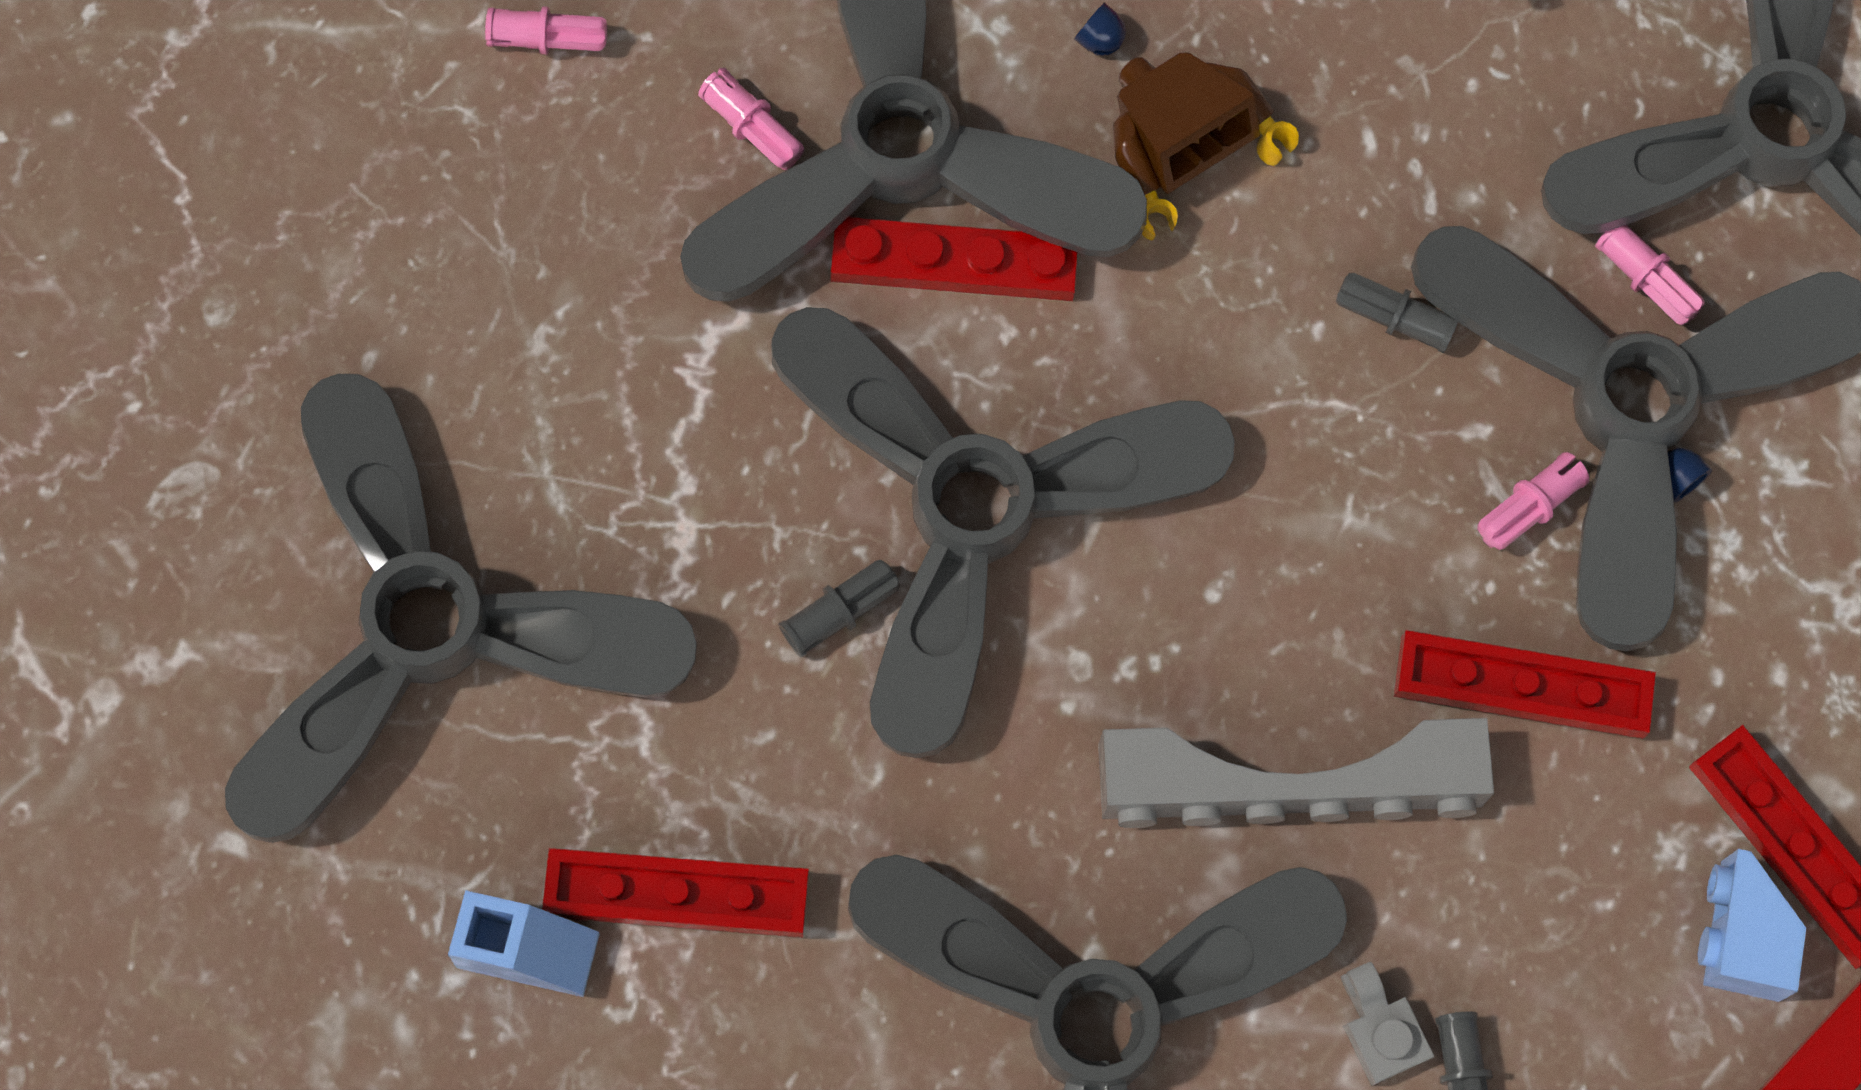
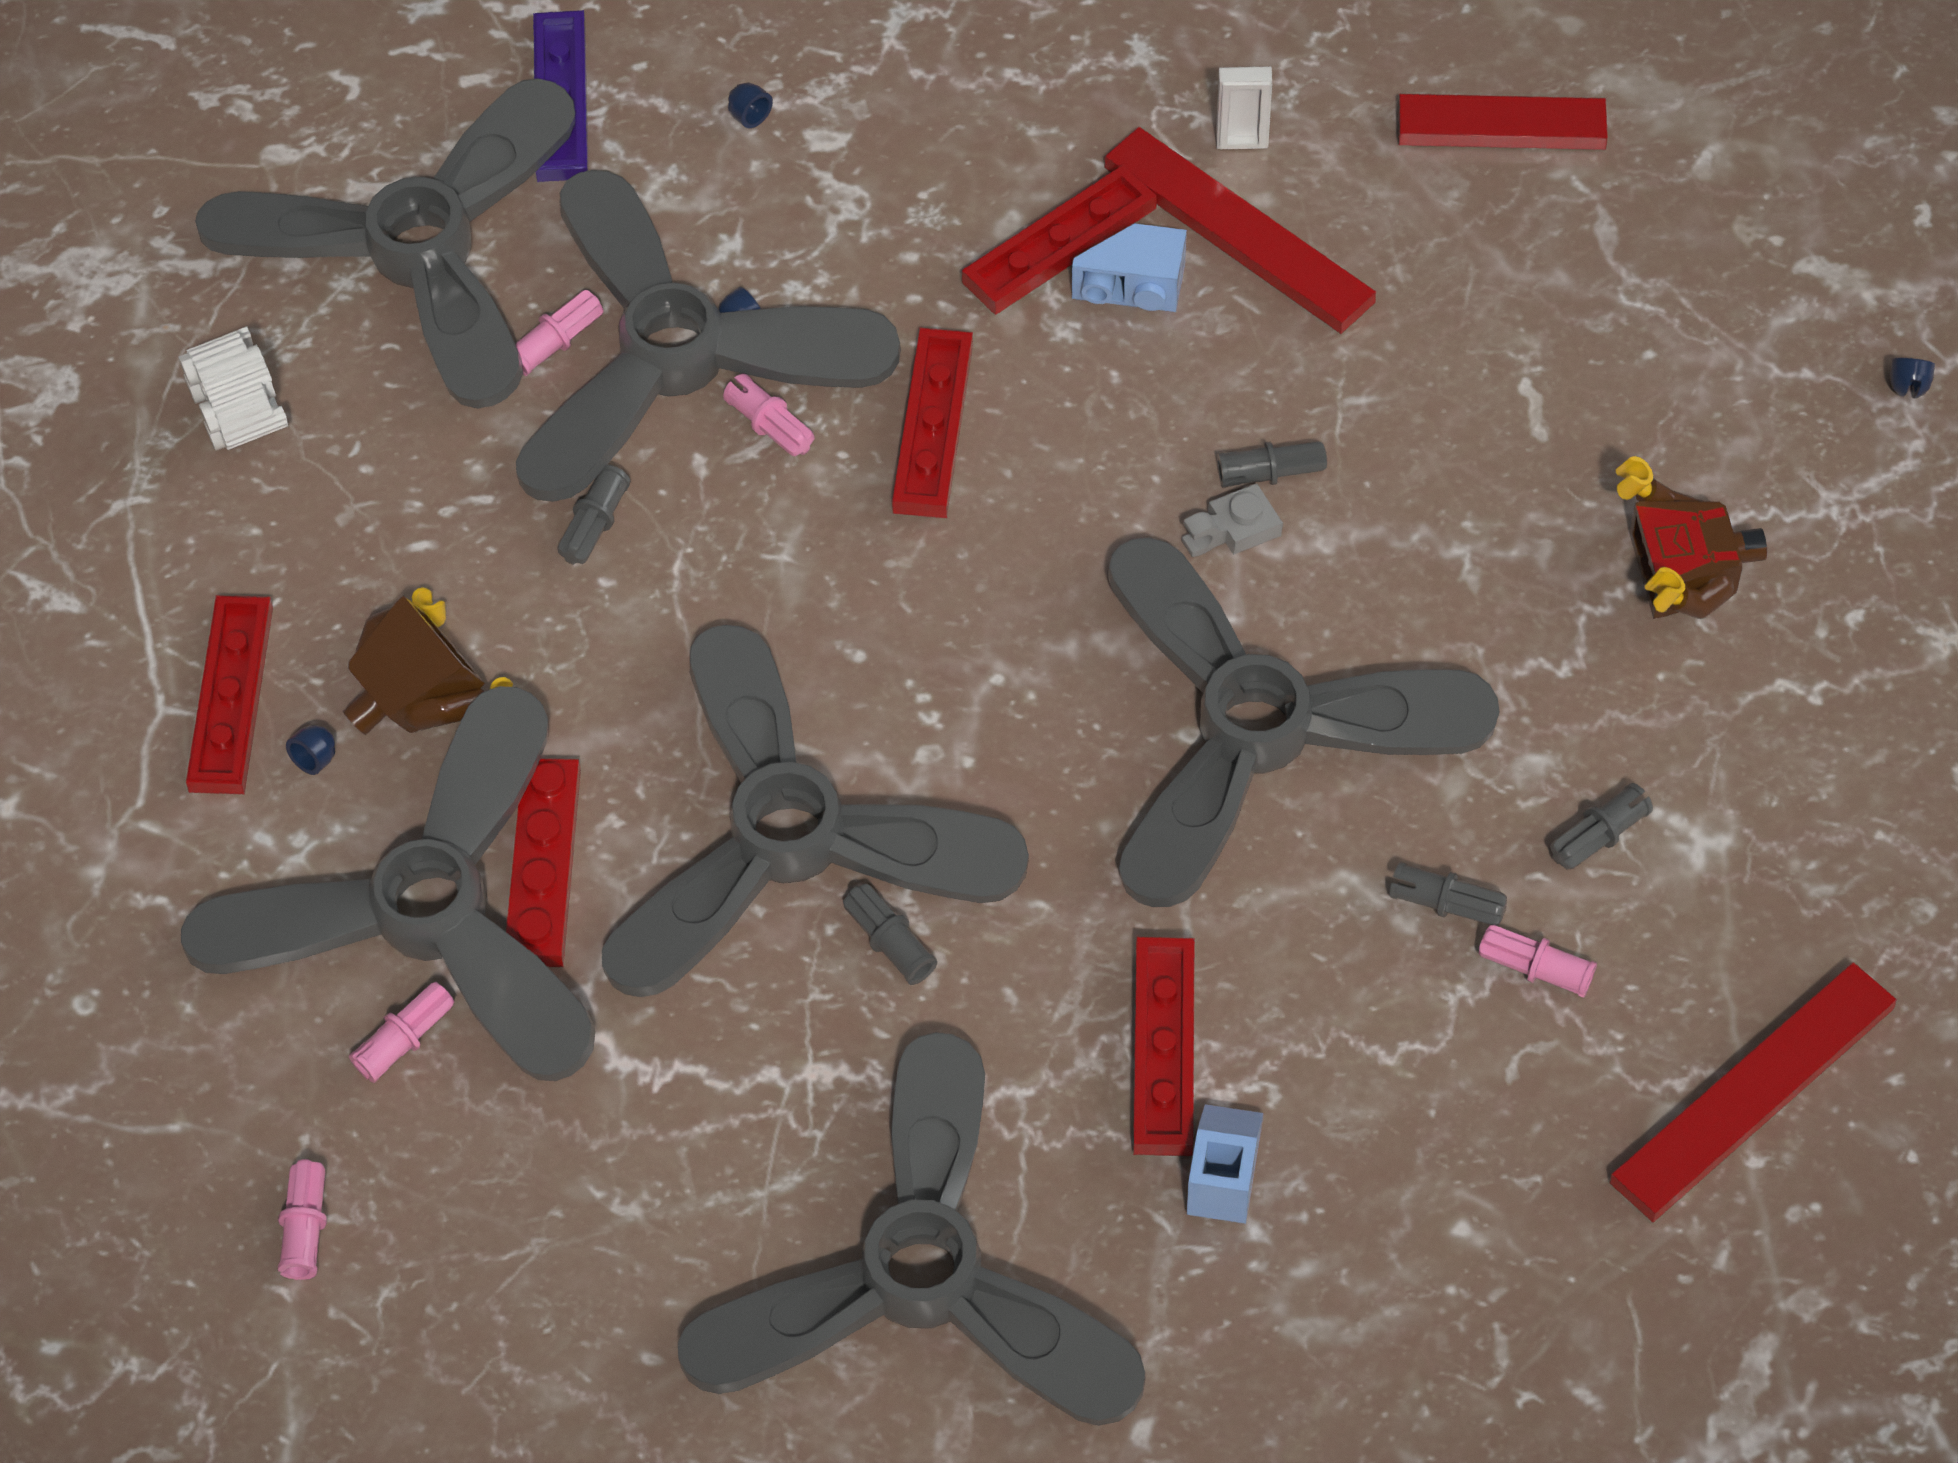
camera: 85 degrees left, 15 degrees down
(1162, 775) = (1030, 670): light grey arch -> none

